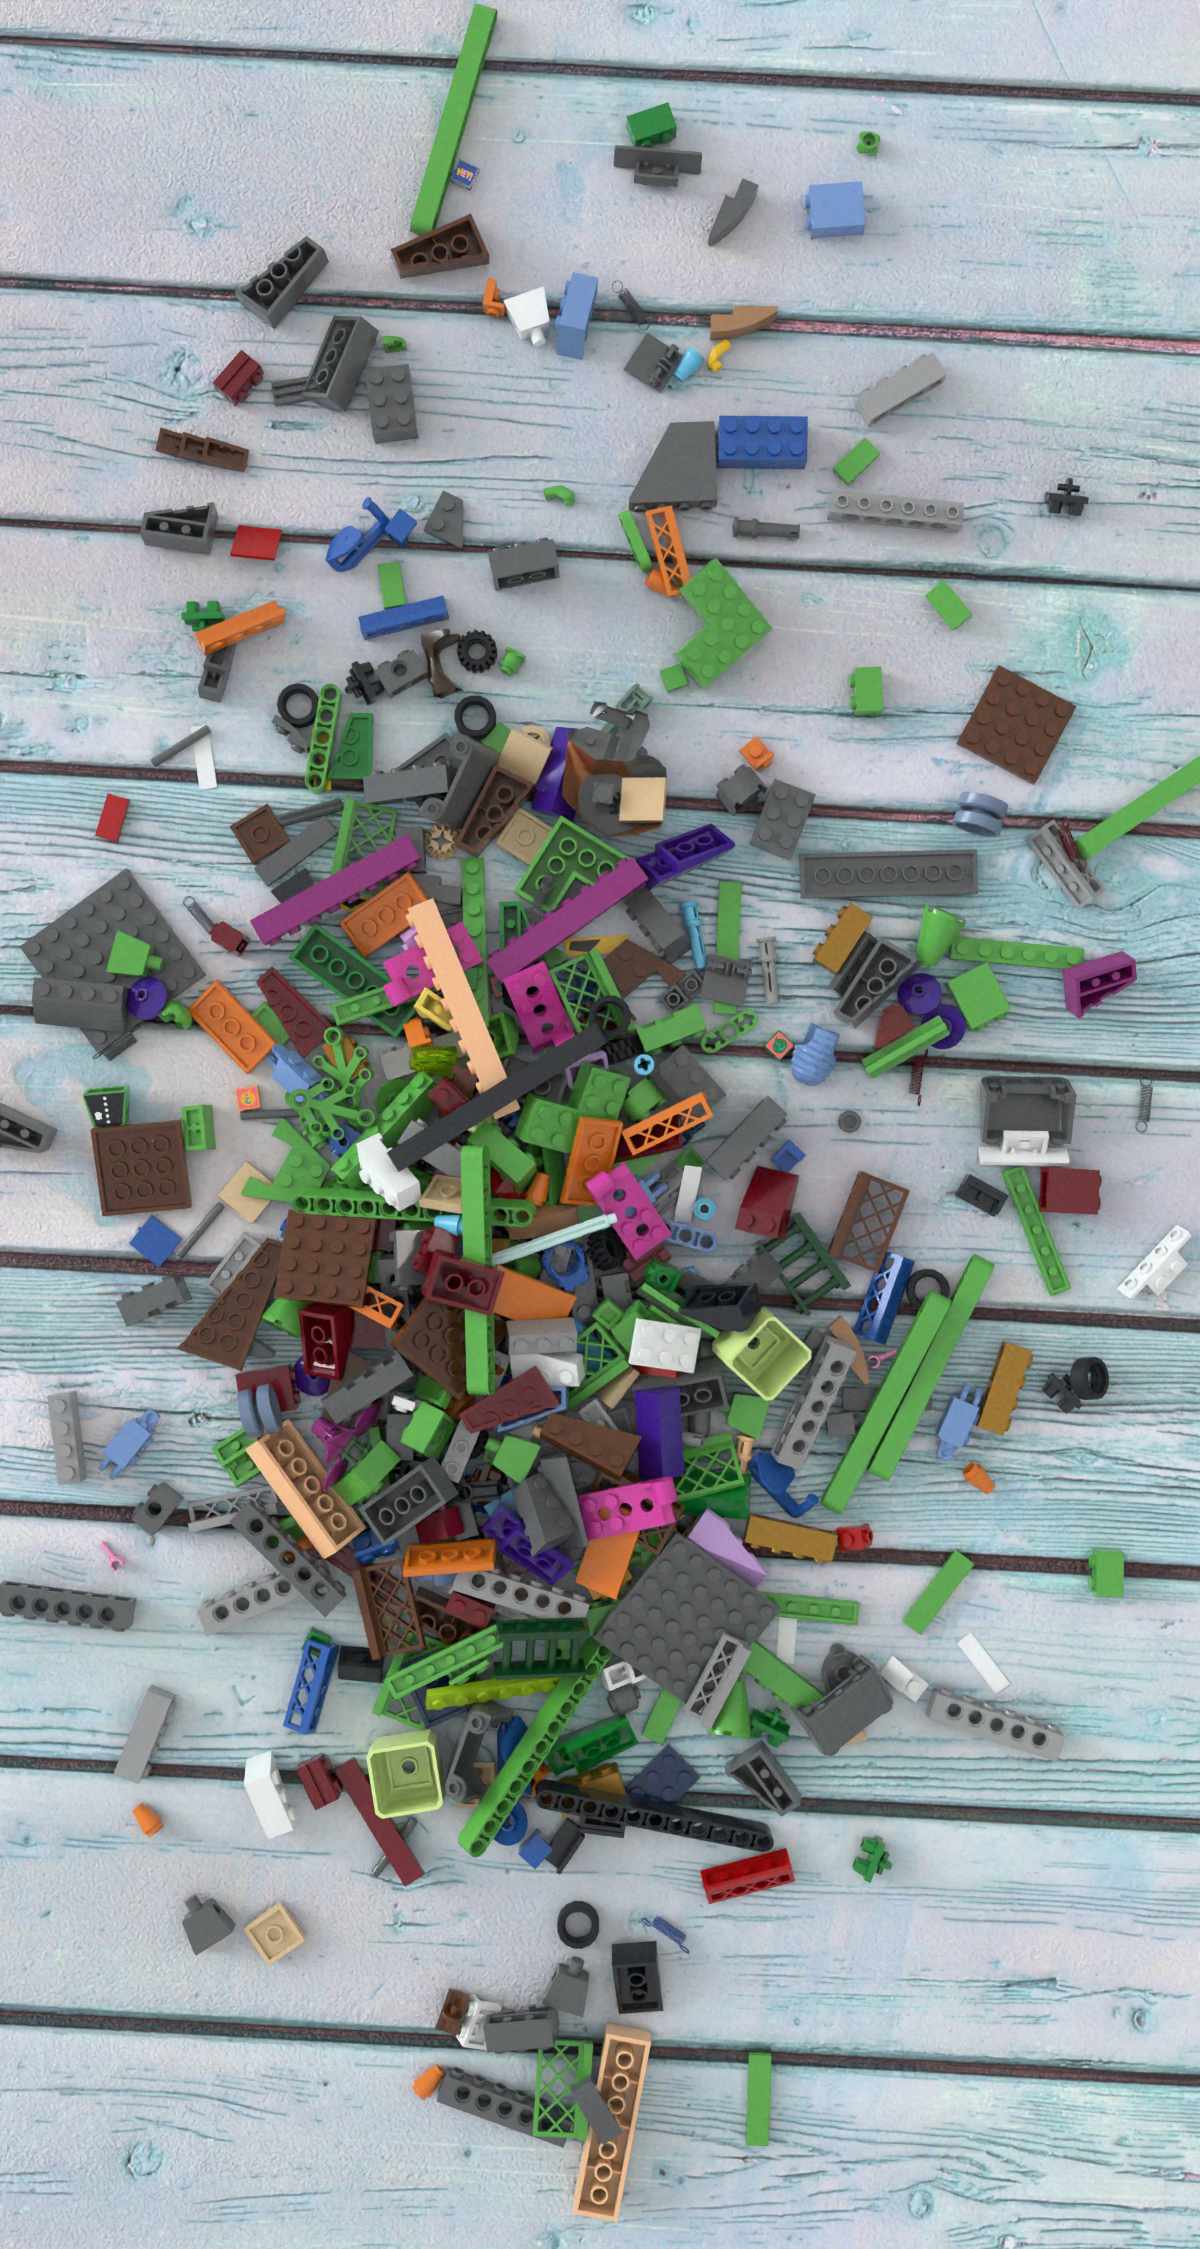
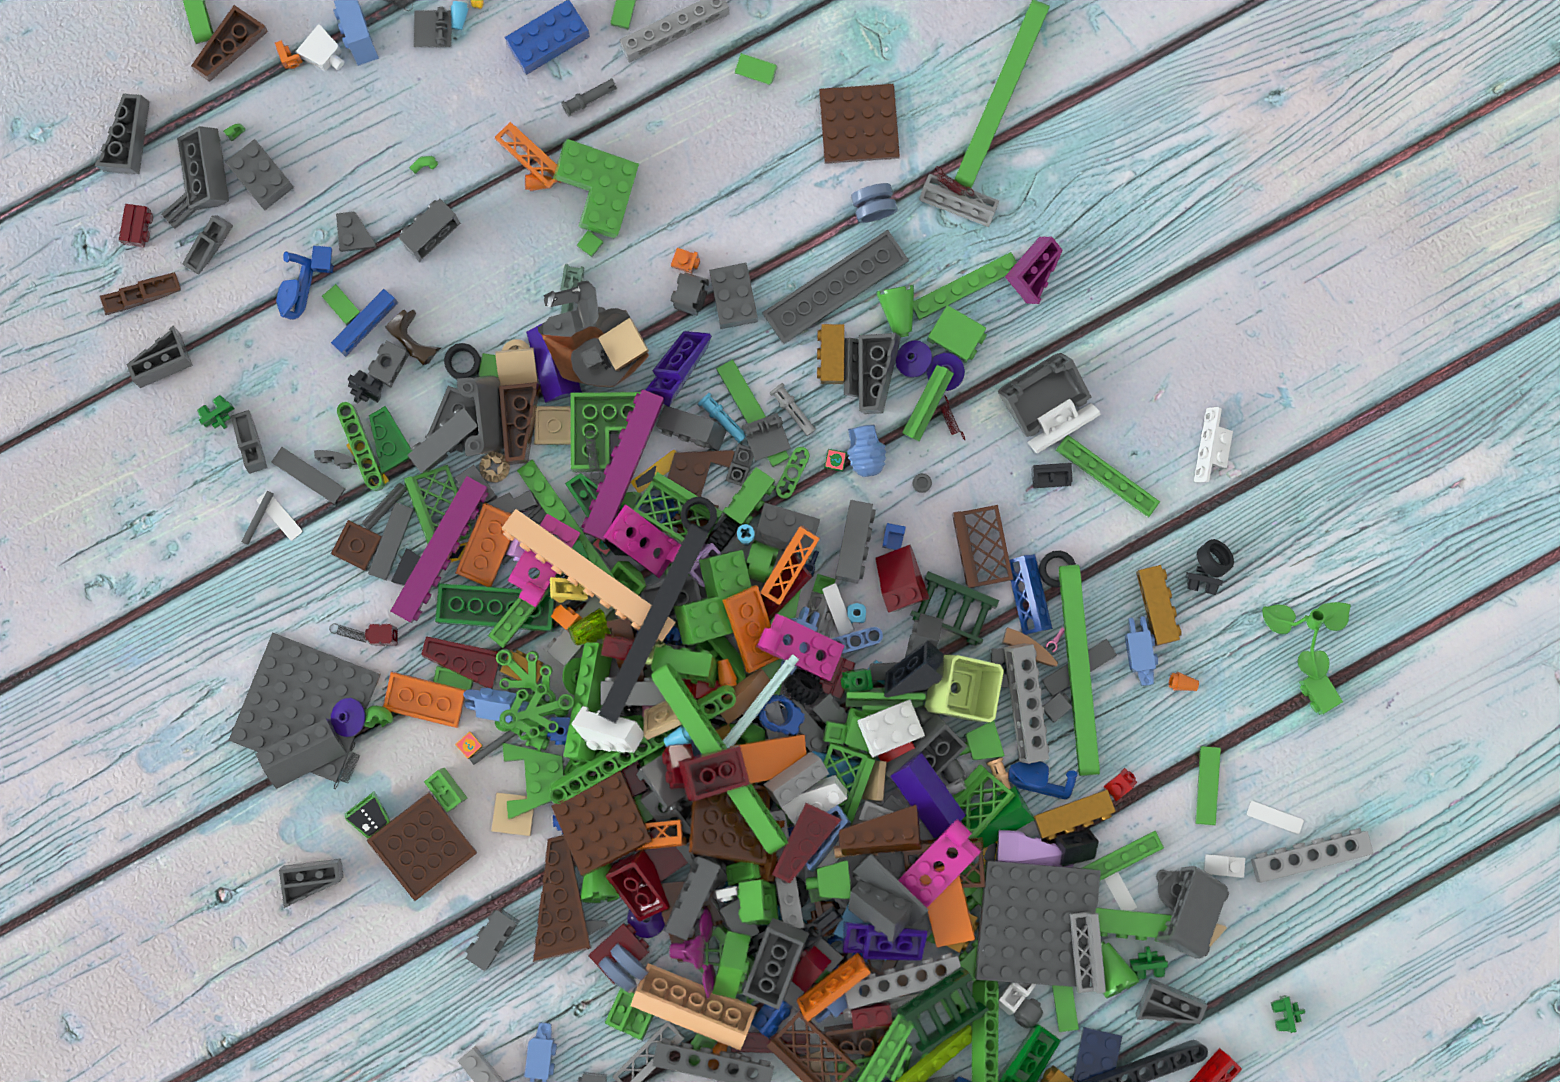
camera: 30 degrees left, 5 degrees down
(112, 817) = (239, 602): red tile -> none
(132, 957) = (318, 693): bright green torso -> none
(155, 1241) = (465, 895): blue piece -> none
(202, 1227) = (494, 865): dark grey bar -> none
(232, 1264) = (534, 875): light grey plate -> none
(240, 627) = (248, 404): orange fence -> none
(255, 735) = (308, 475): none -> dark grey tile
(256, 543) = (222, 335): red piece -> none
(282, 701) = (317, 423): black tyre -> none
(298, 441) = (207, 244): none -> dark grey slope
(477, 638) = (437, 324): black tyre -> none
(511, 661) = (464, 305): bright green brick -> none
(635, 541) = (500, 163): bright green beam -> none
(680, 470) = (500, 93): dark grey slope -> none
(773, 1570) = (1077, 847): none -> black panel
(867, 691) = (736, 166): bright green brick -> none
(891, 1025) = (907, 394): clear red slope -> none
(931, 1368) = (1096, 624): bright green beam -> none
(1069, 1190) = (1113, 431): dark red brick -> none
(1150, 1099) = (1126, 336): dark grey piece -> none
(1167, 1507) = (1334, 616): none -> bright green plant

